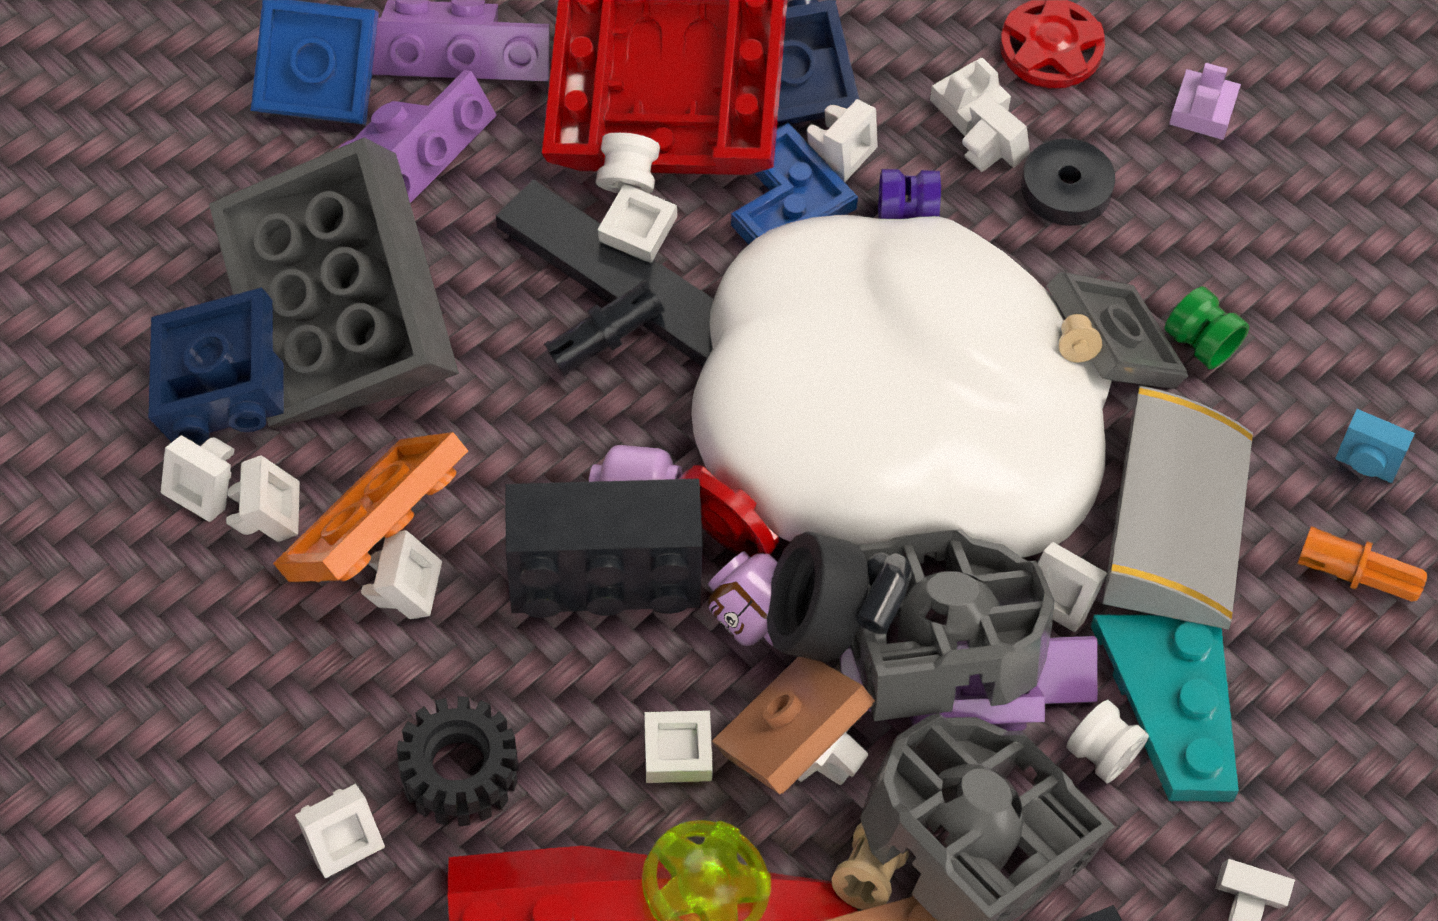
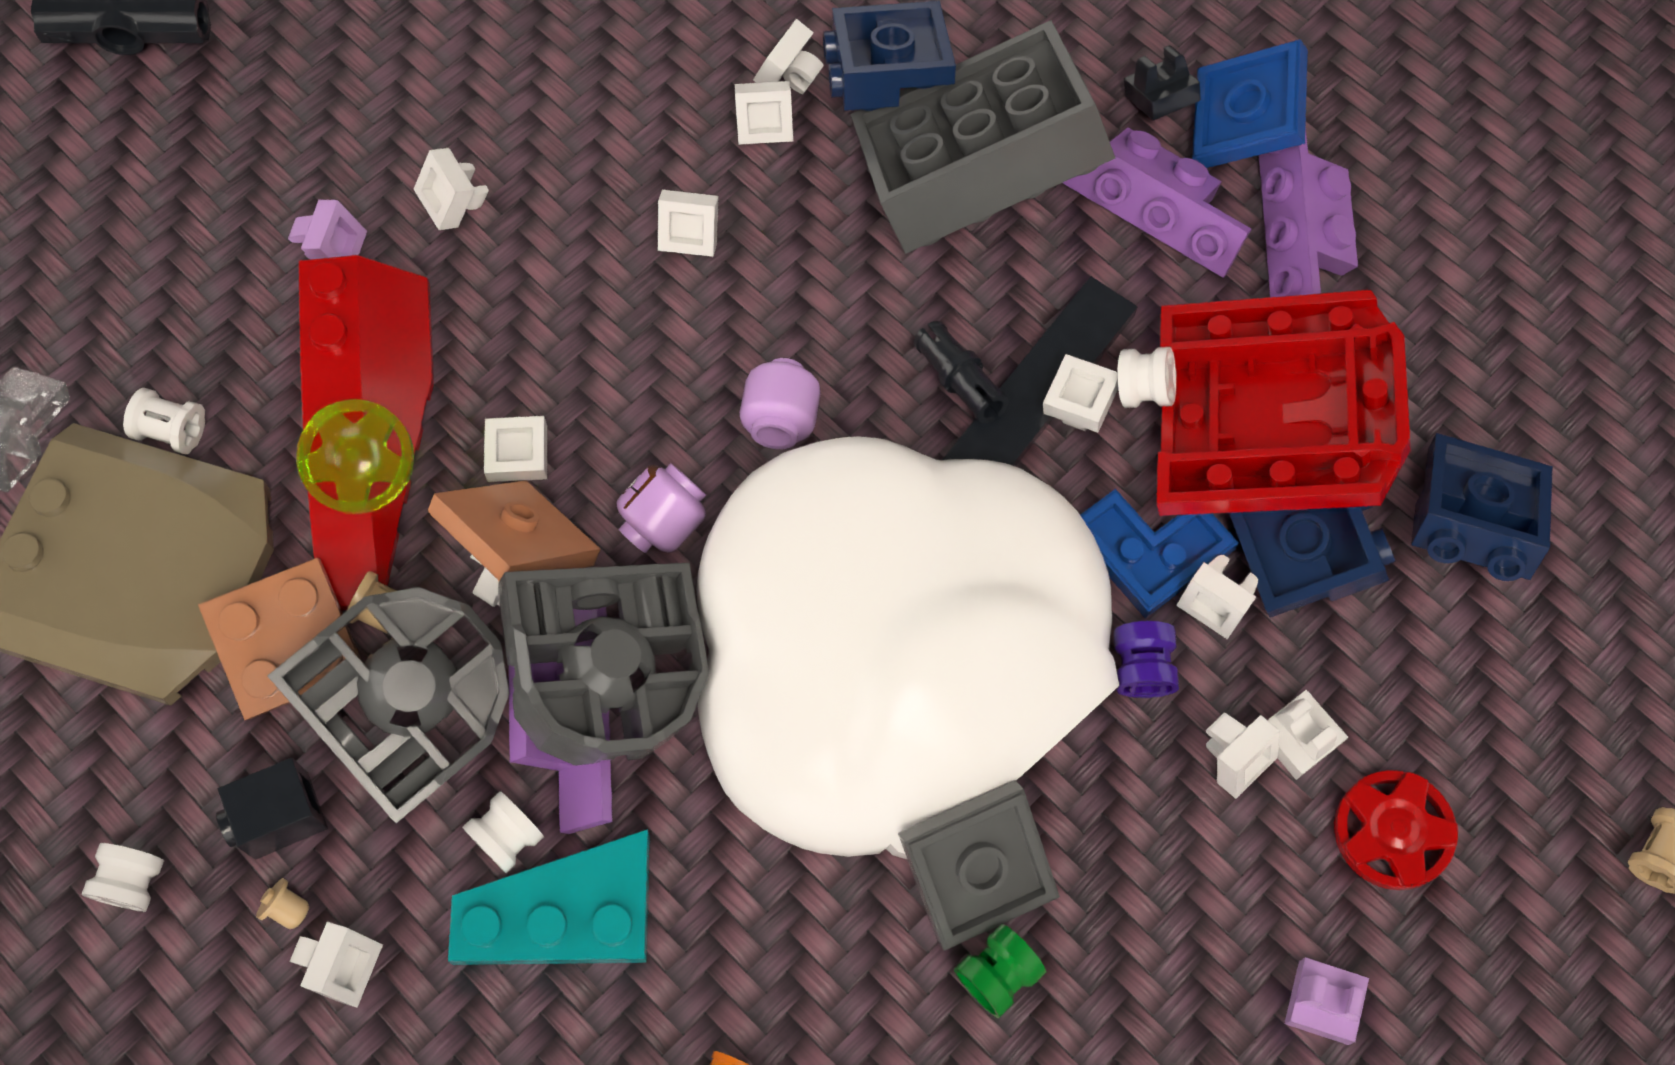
camera: 90 degrees right, 10 degrees up
(274, 137) = (1162, 86): none -> black tile
(372, 508) = (741, 182): orange plate -> none
(455, 726) = (504, 247): black tyre -> none
(604, 546) = (695, 366): black brick -> none
(731, 516) = (731, 464): red wheel -> none
(817, 596) = (621, 537): black tyre -> none
(889, 583) = (621, 591): black arm -> none
(1065, 202) = (1212, 812): black piece -> none
(1072, 584) = (675, 798): white tile -> none
(1079, 339) = (940, 804): tan piece -> none
(1179, 511) = (765, 922): light grey slope -> none

